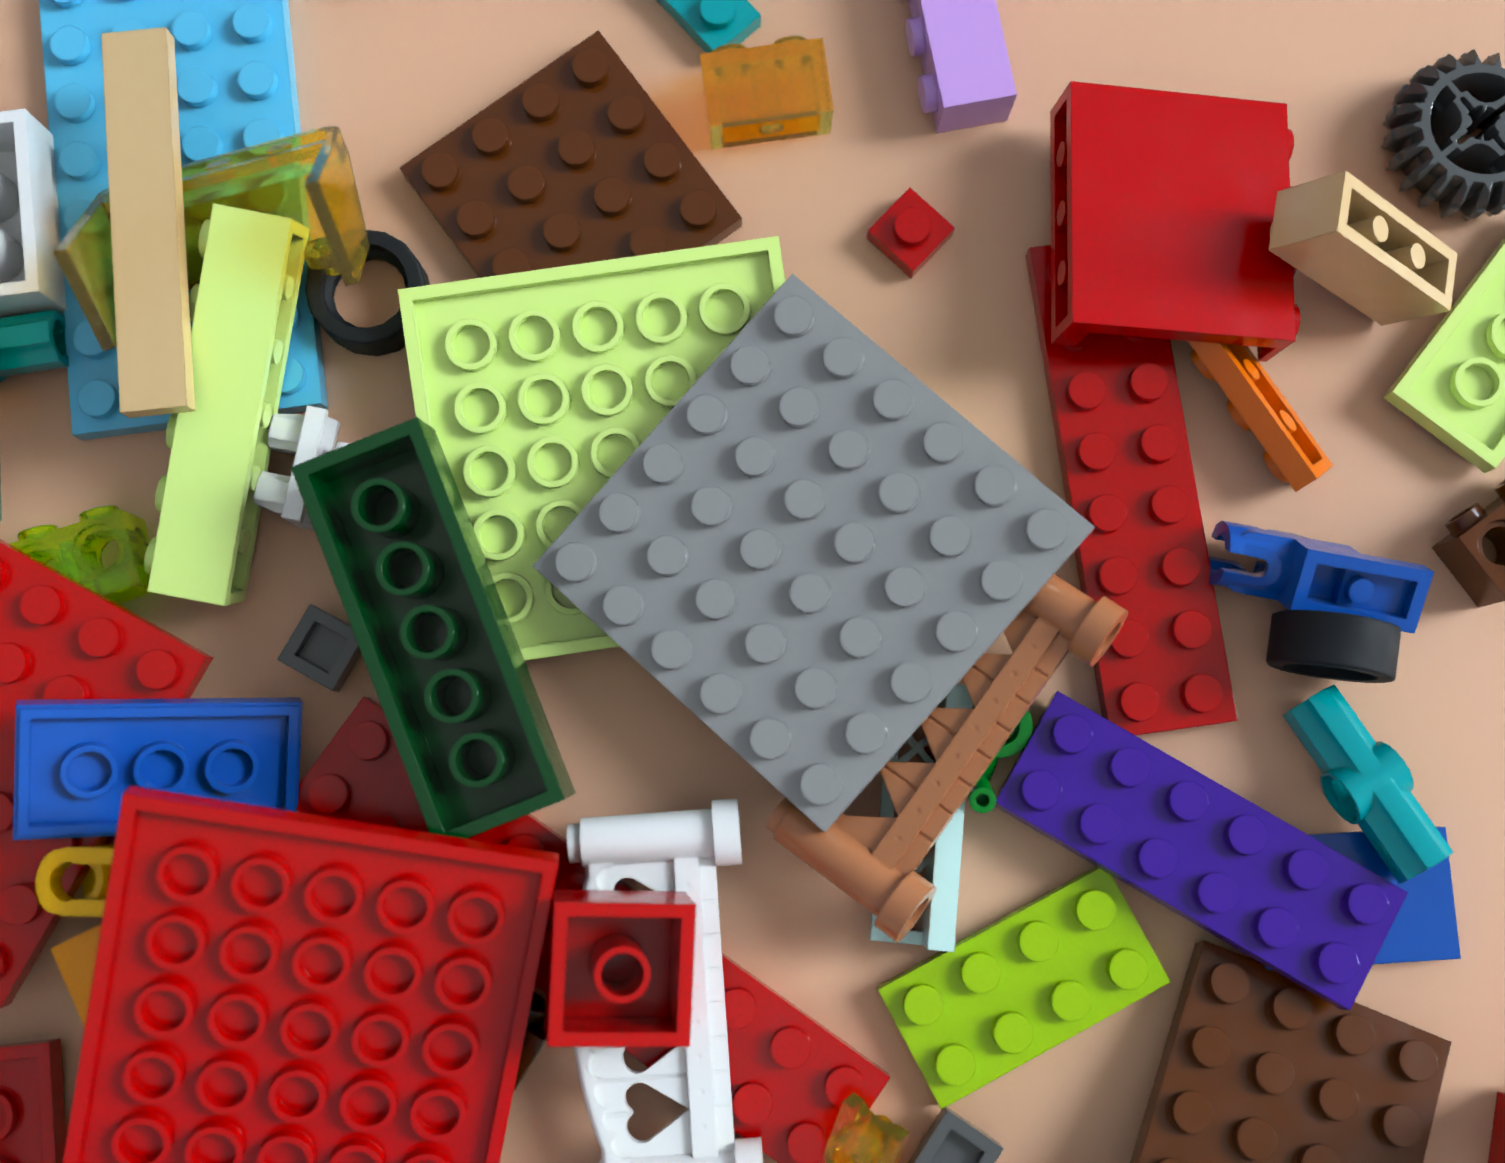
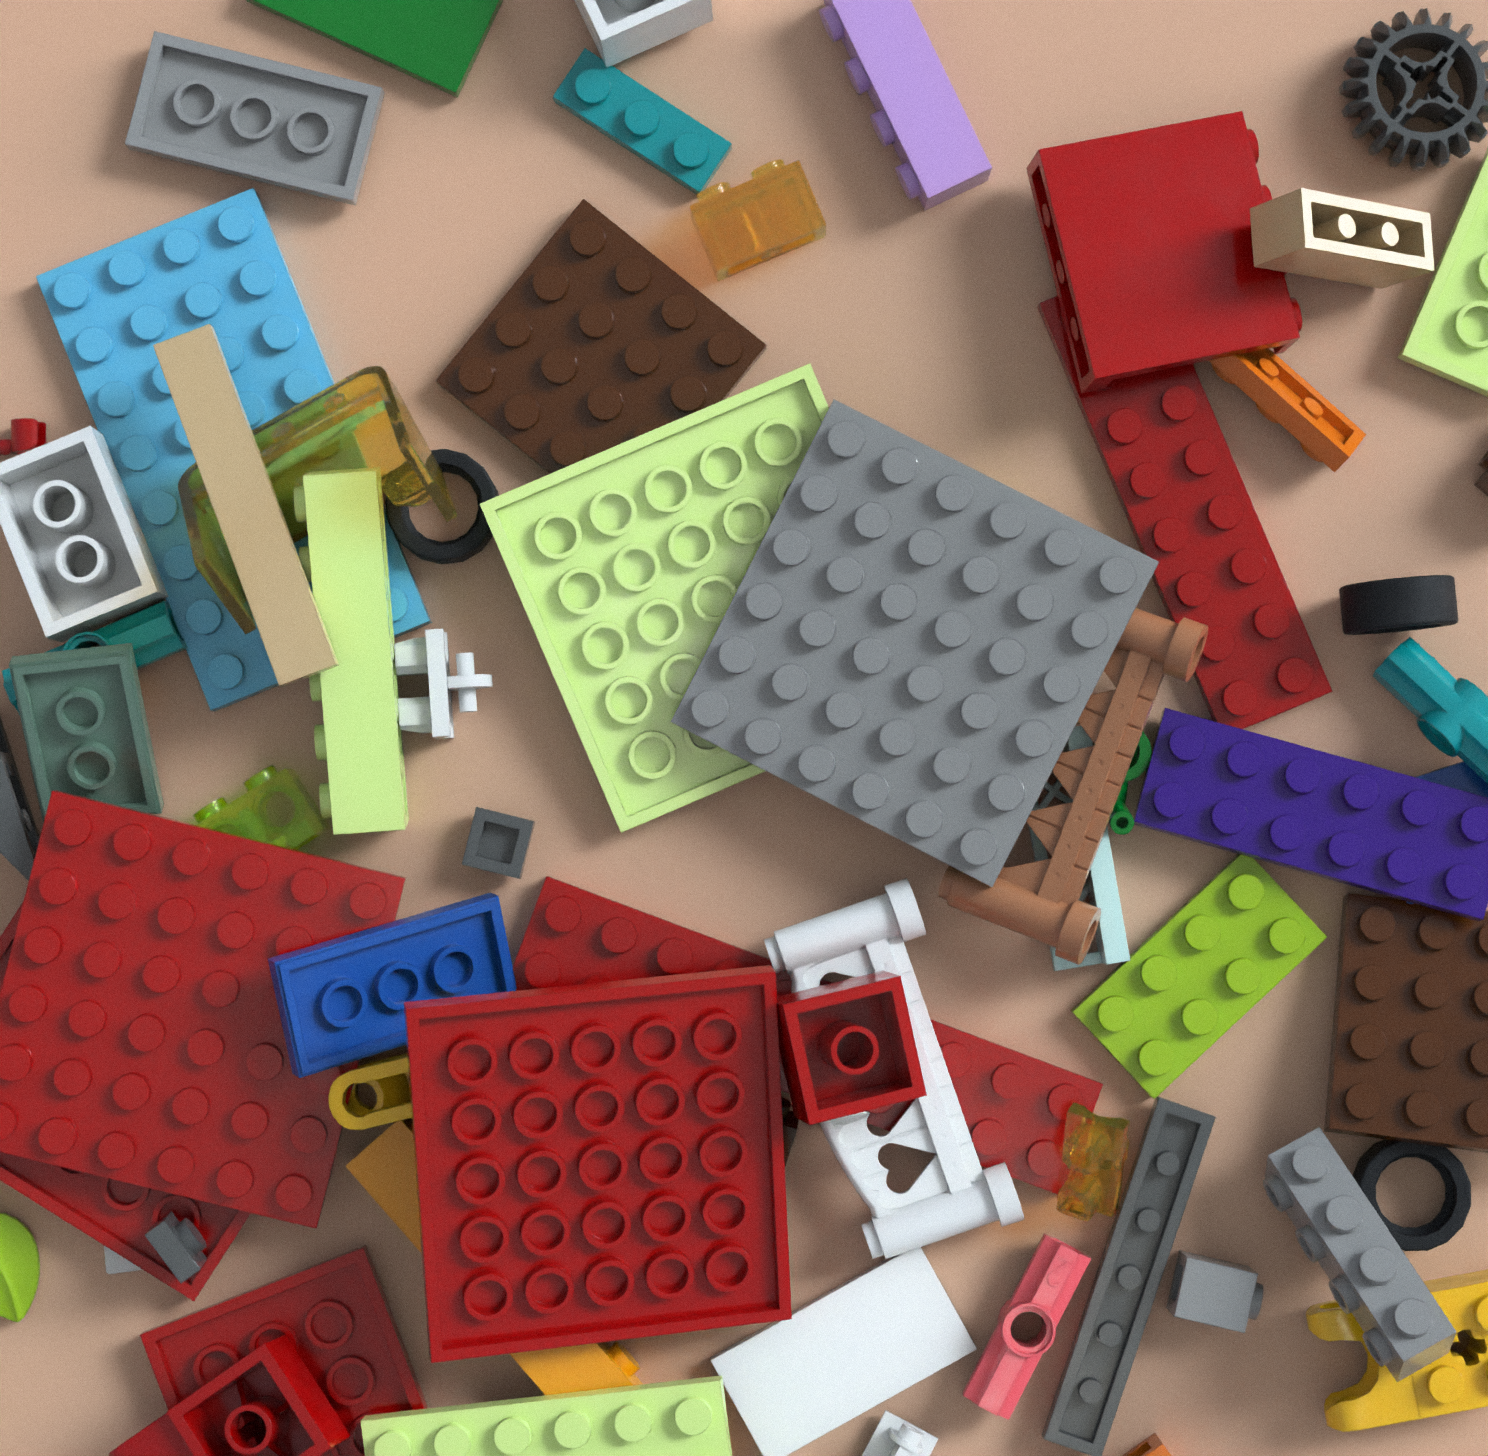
camera: 10 degrees left, 5 degrees up
(433, 631) = (606, 804): dark green brick -> none
(910, 232) = (925, 316): red plate -> none
(1320, 575) = (1372, 544): blue plate -> none

